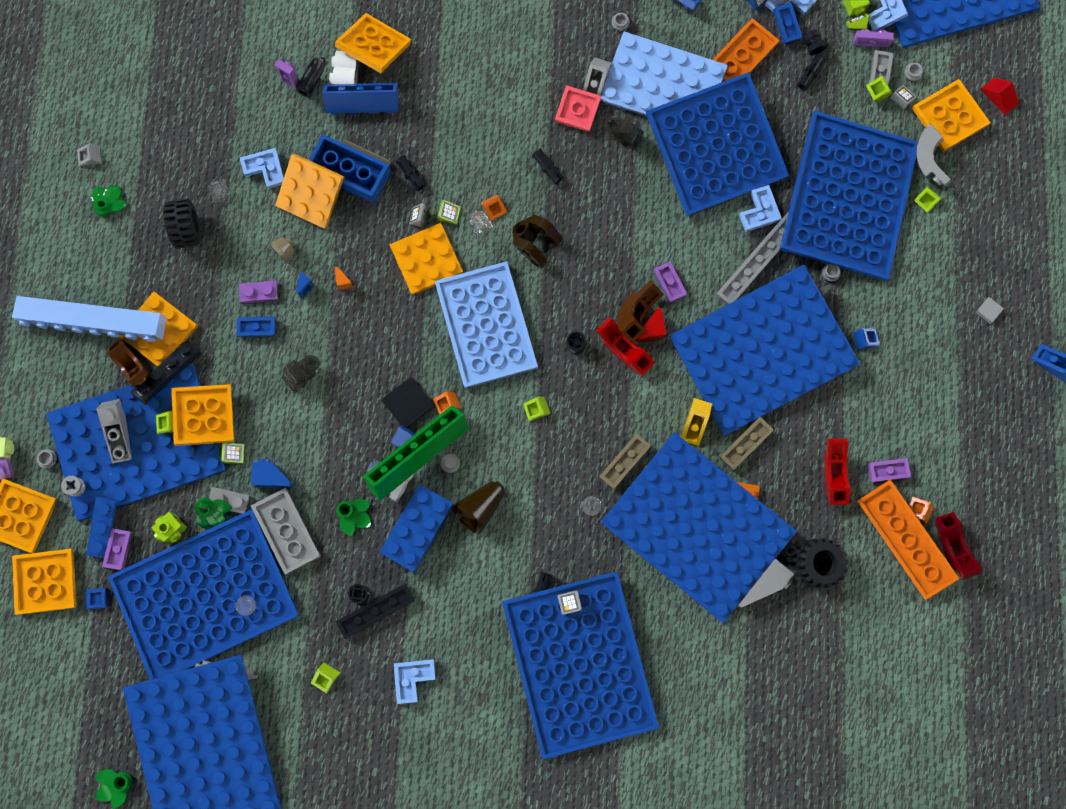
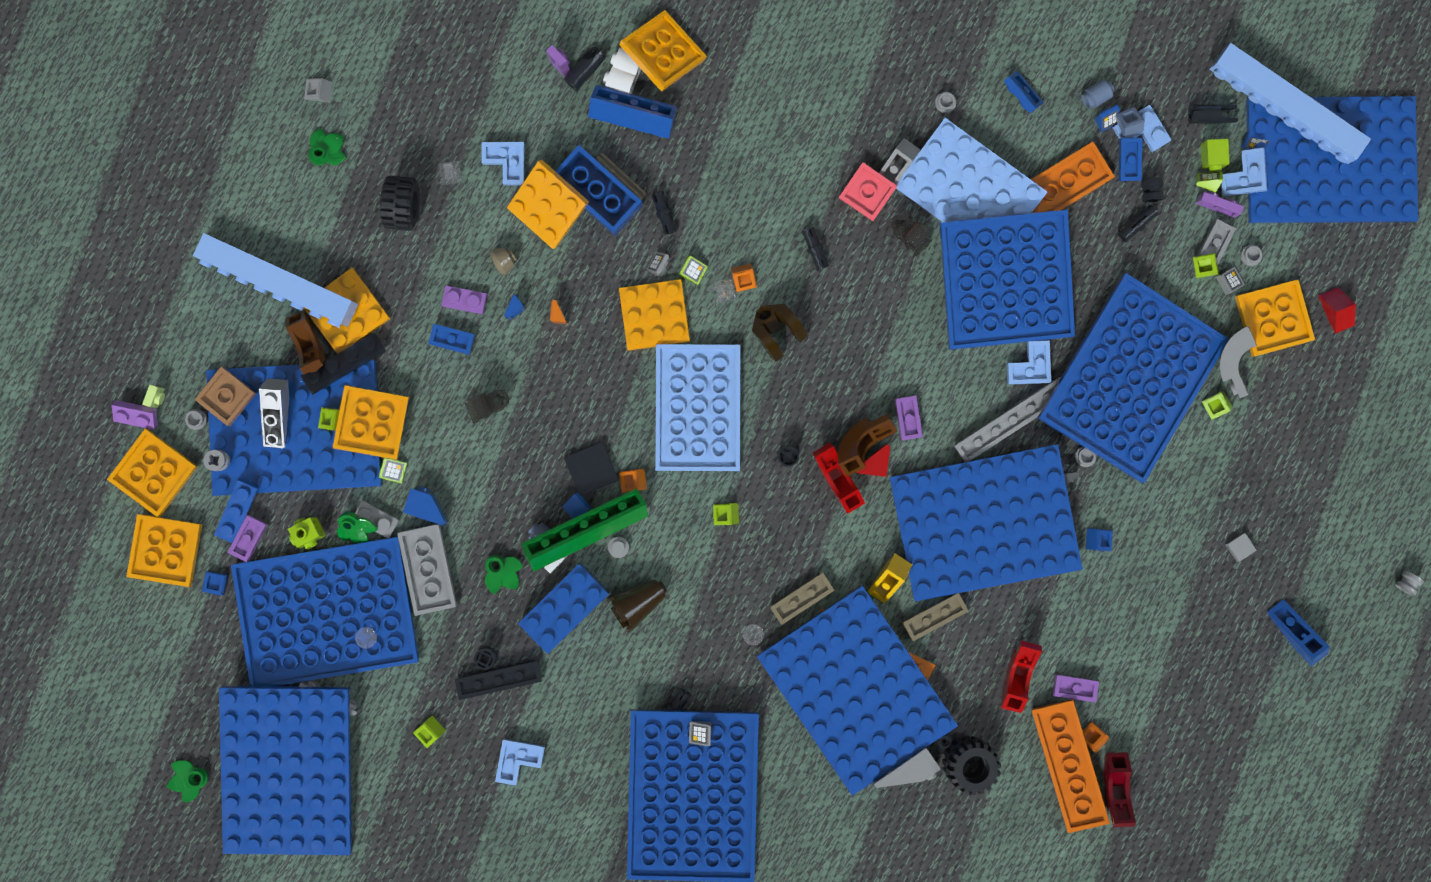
camera: 10 degrees right, 10 degrees up
(68, 428) = (225, 396): none -> medium nougat plate

